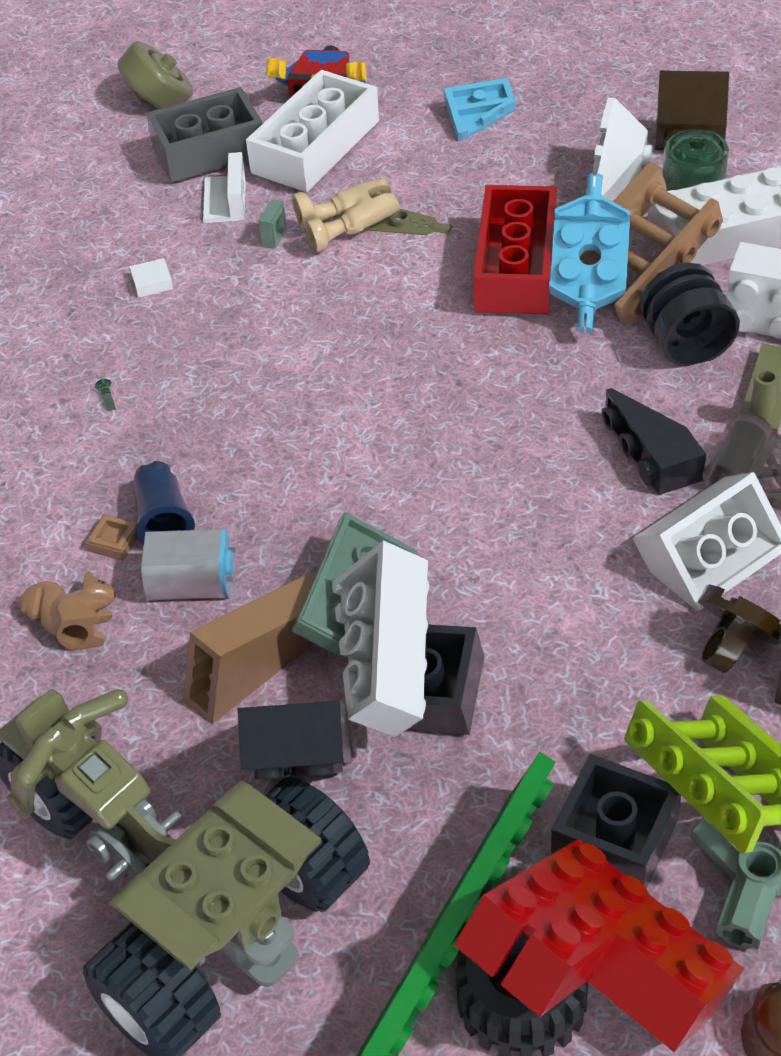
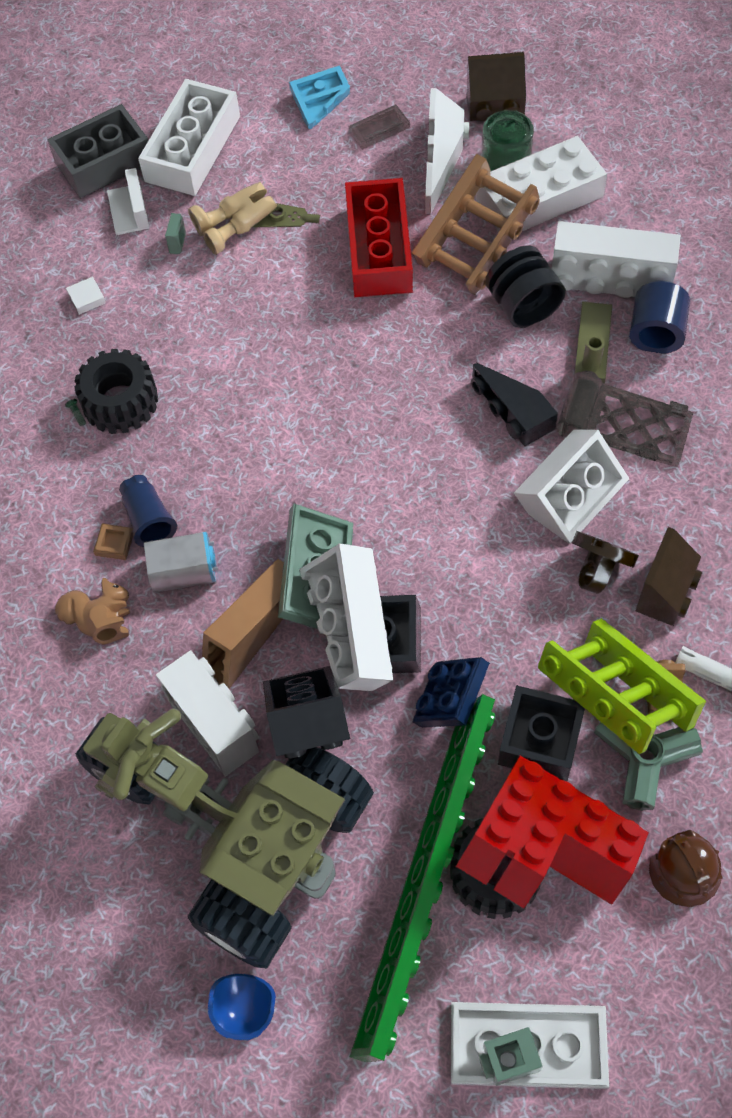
camera: 10 degrees left, 15 degrees up
(154, 76) = (42, 95): olive wheel -> none
(158, 373) = (119, 410): none -> black tyre
(178, 734) = (209, 712): none -> white brick
(310, 63) = (175, 70): torso -> none
(500, 756) = (450, 692): none -> dark blue tile
(543, 144) = (379, 126): none -> clear smoke tile
(590, 225) = (447, 218): medium azure plate -> none

